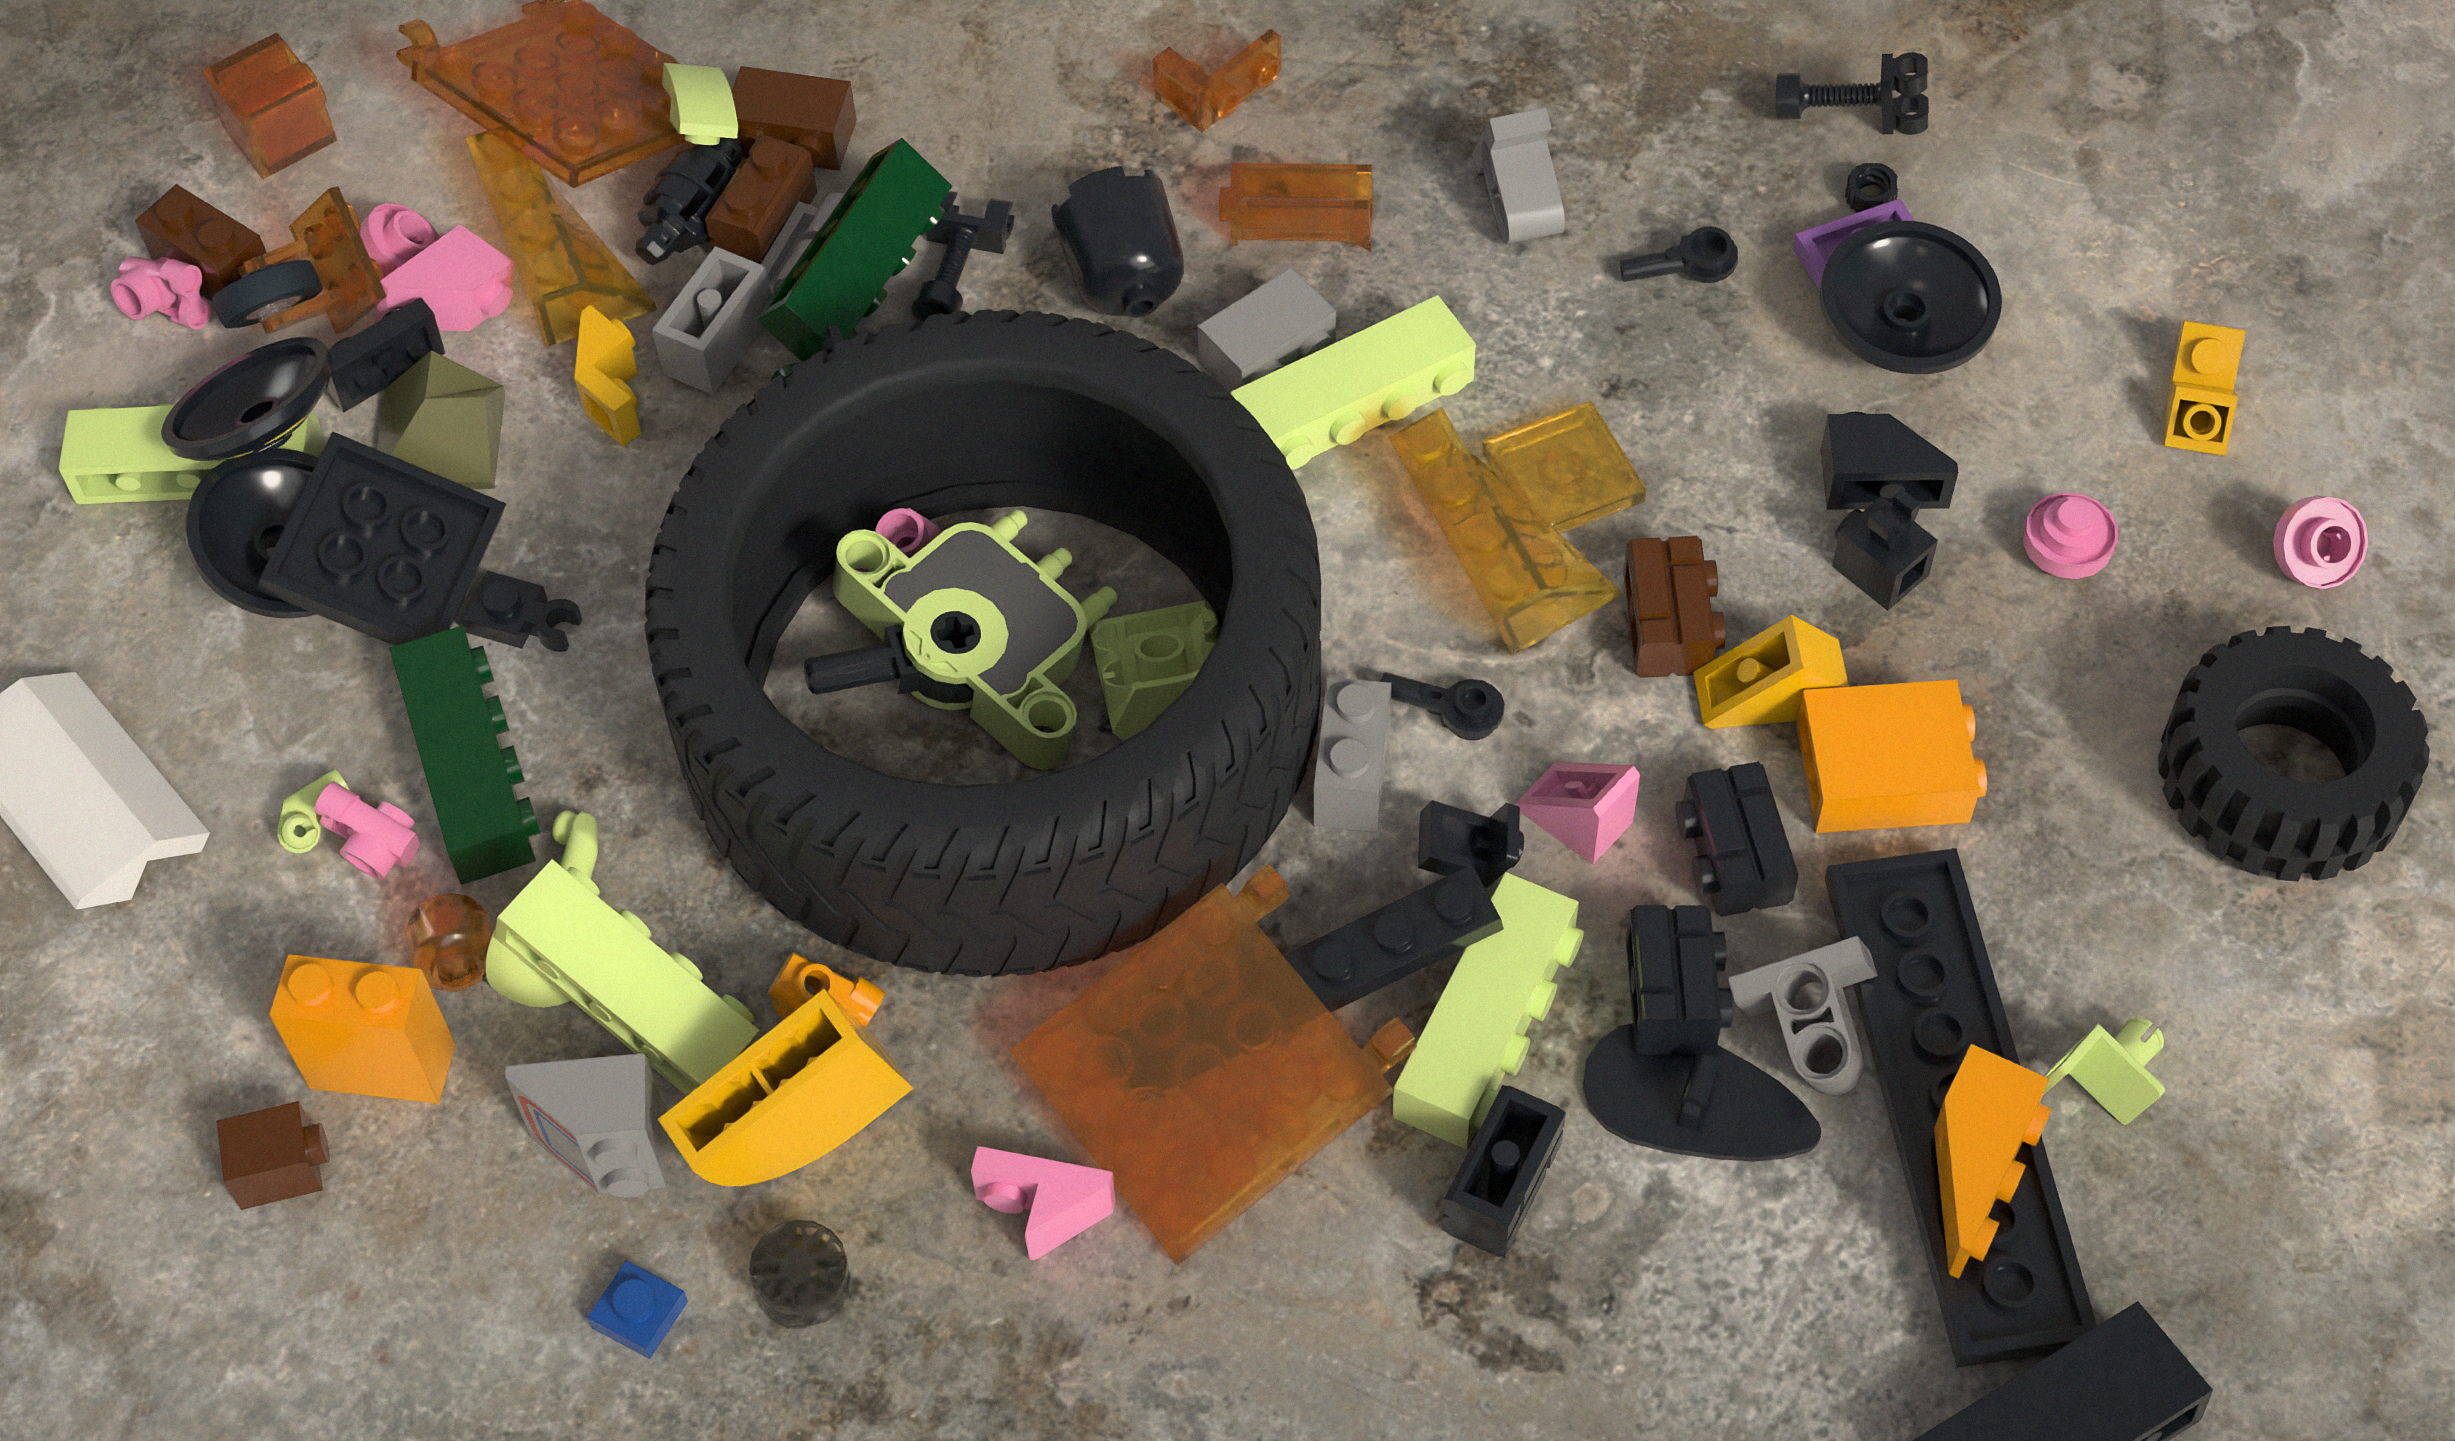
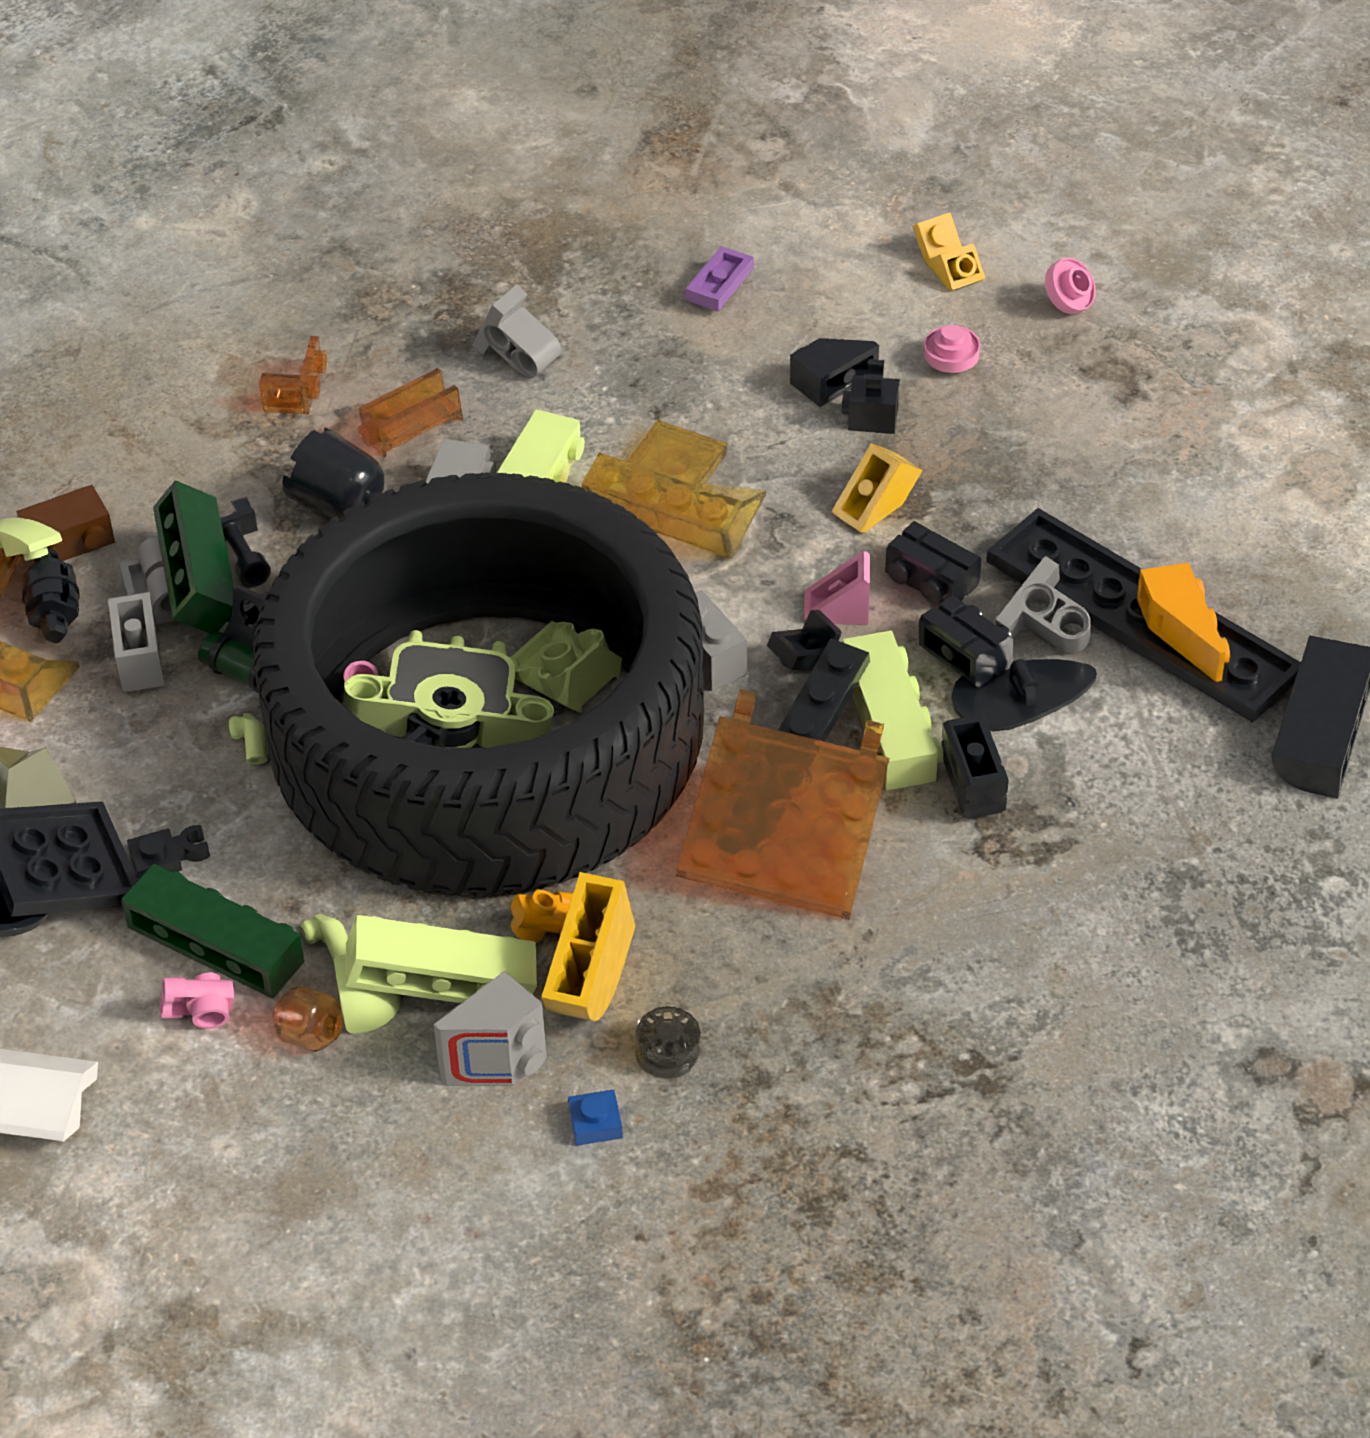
camera: 40 degrees left, 10 degrees down
(271, 1155) = (315, 1178): reddish brown brick -> none
(298, 822) = (143, 1016): yellowish green arm -> none
(363, 1028) = (317, 1074): light orange brick -> none
(601, 375) = (98, 718): yellow slope -> none
(761, 198) = (96, 572): reddish brown brick -> none
(1059, 1194) = (757, 920): bright pink slope -> none
(1467, 708) = (737, 591): black plate -> none
(1671, 606) = (794, 485): reddish brown brick -> none
(1703, 255) = (645, 325): black plate -> none
(1795, 95) = (673, 208): black bar -> none
(1866, 175) = (697, 244): black axle -> none
(1889, 756) = (964, 489): light orange brick -> none
(1913, 275) = (775, 283): black dish -> none
(2114, 1068) = (1206, 556): yellowish green bracket -> none
(2314, 688) = (1141, 408): black tyre -> none

